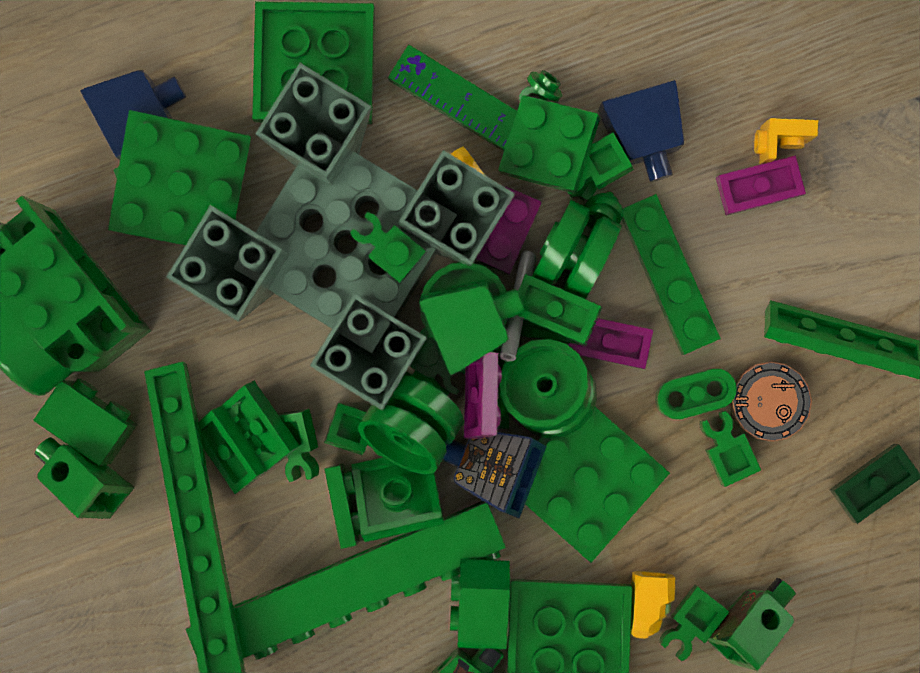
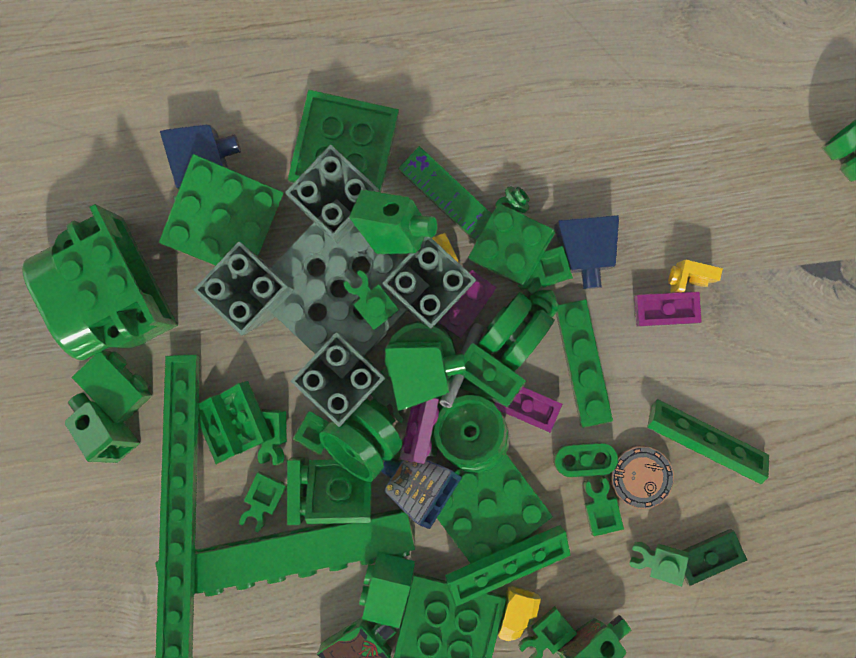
camera: 10 degrees right, 0 degrees up
(302, 520) = (264, 497): none -> green plate
(395, 144) = (391, 222): none -> green torso
(626, 543) = (508, 565): none -> green plate
(822, 501) = (666, 562): none -> green plate

